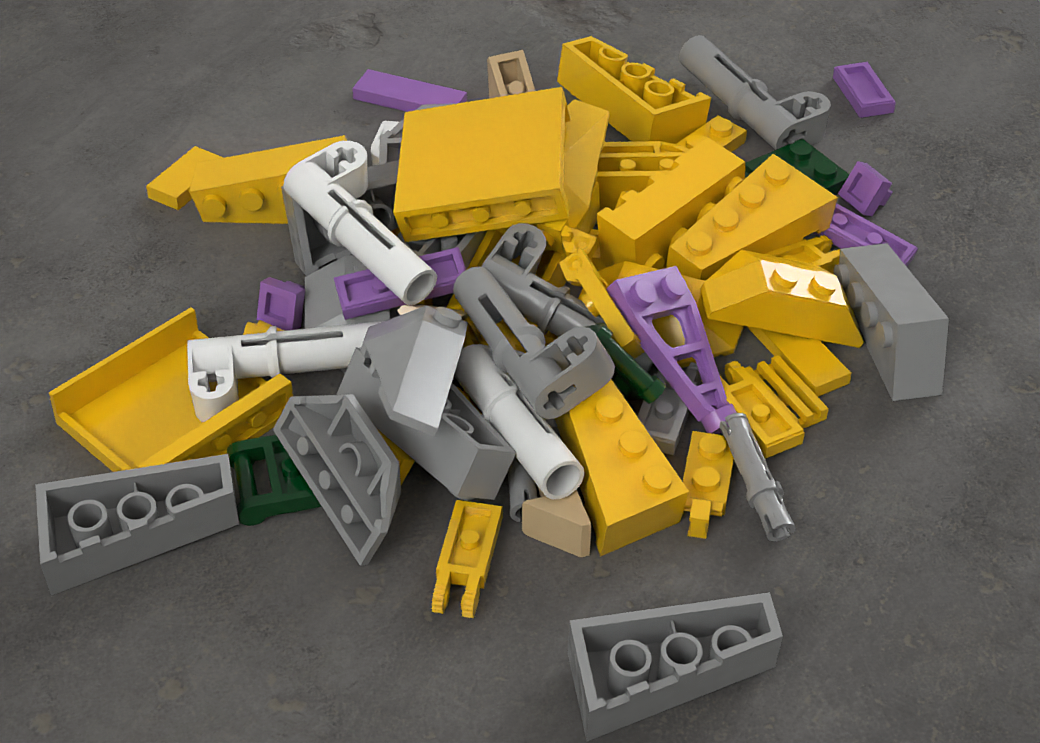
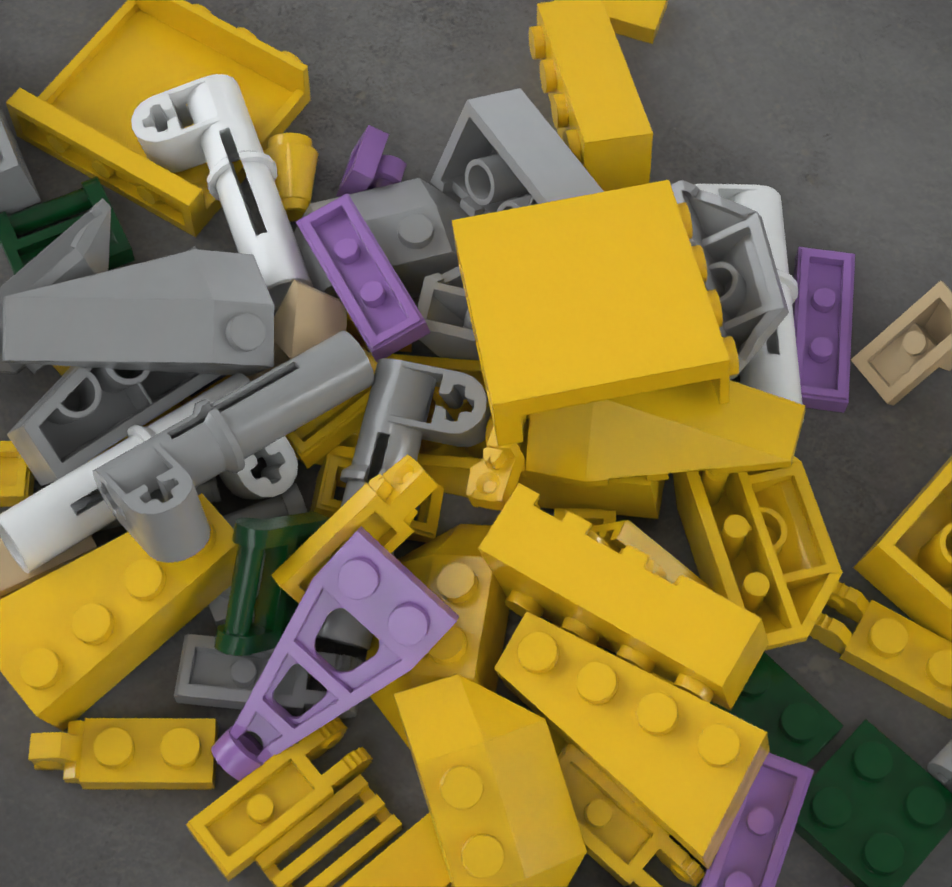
camera: 75 degrees right, 20 degrees up
(328, 190) = (413, 172): white piece -> none
(402, 92) = (887, 217): medium lavender tile -> none
(761, 488) = (103, 829): light grey pin -> none

